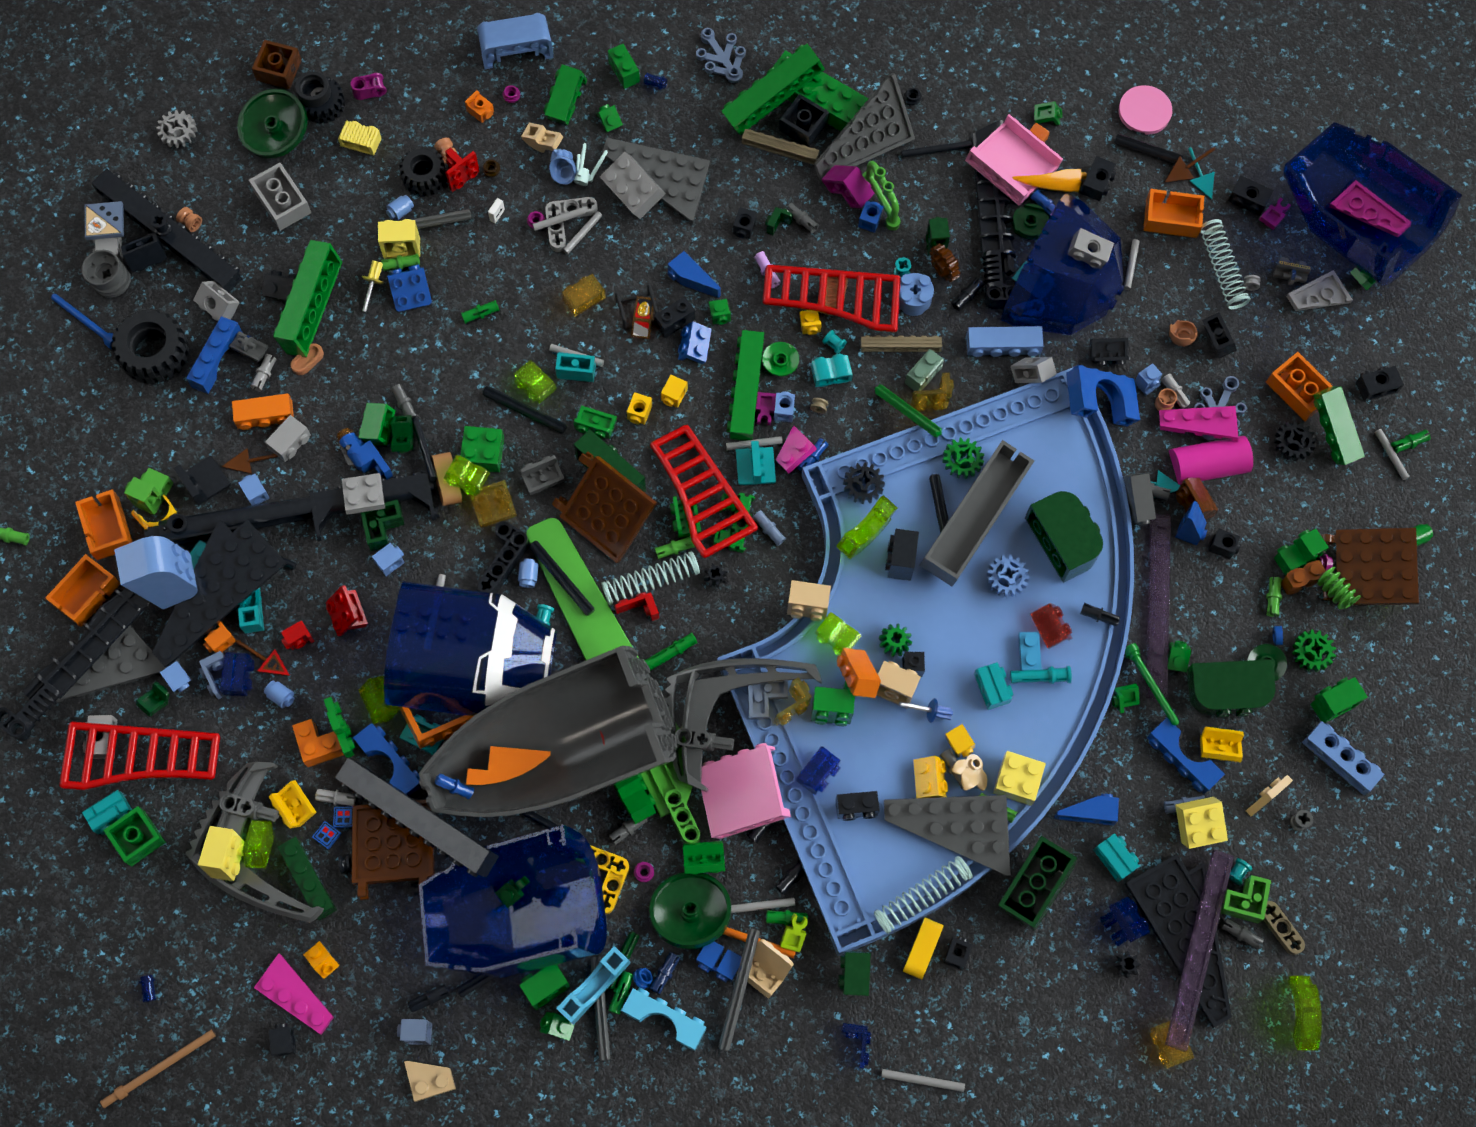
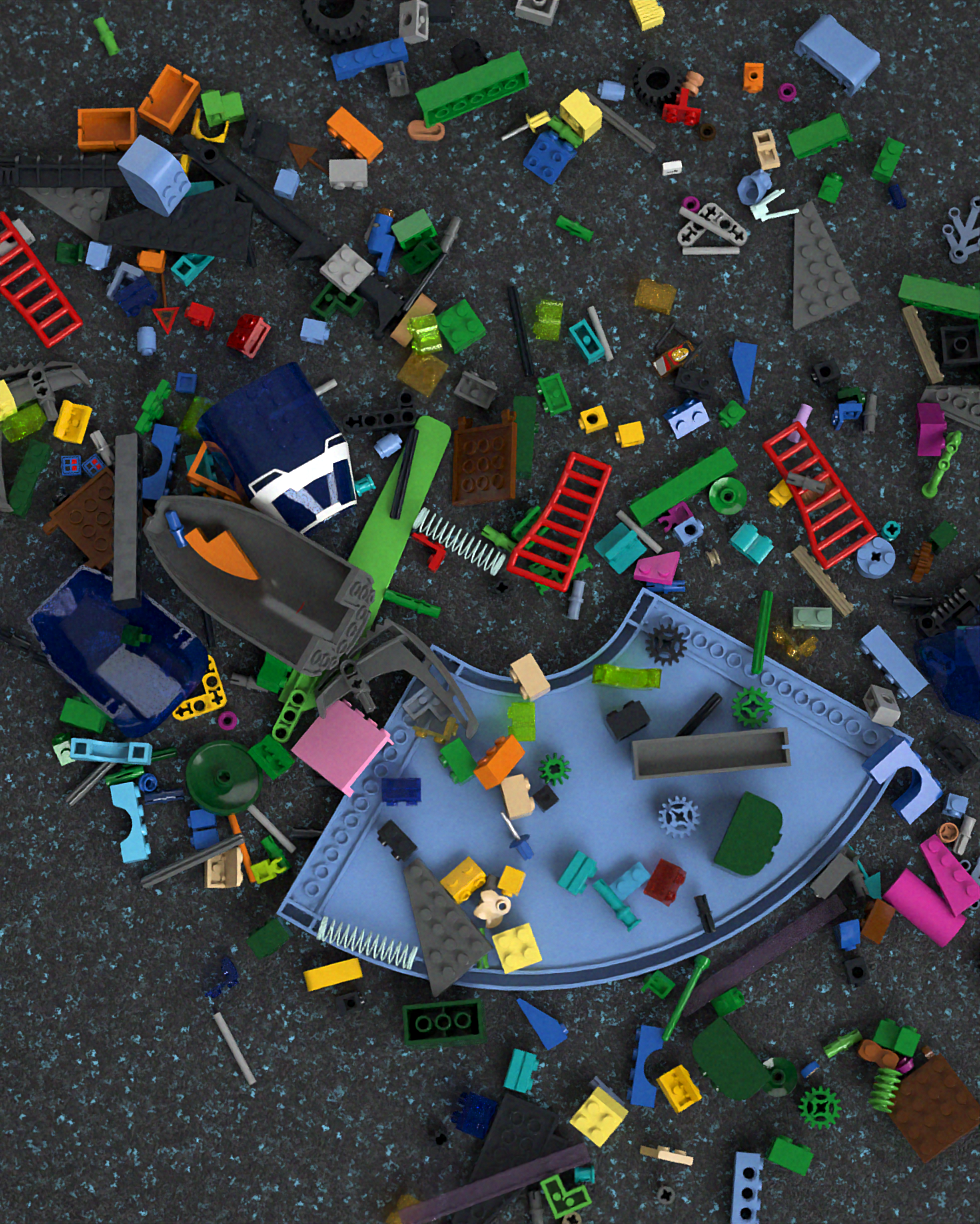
camera: 55 degrees right, 10 degrees up
(263, 373) = (386, 107): light grey pin -> none
(316, 748) = (126, 398): orange brick -> none
(341, 690) = (186, 383): none -> blue tile
(632, 185) = (782, 256): light grey brick -> none
(788, 230) = (849, 410): none -> blue bracket
(820, 292) = (805, 482): none -> dark grey pin
(834, 341) = (779, 526): teal bush -> none
(868, 222) = (910, 472): blue brick -> none

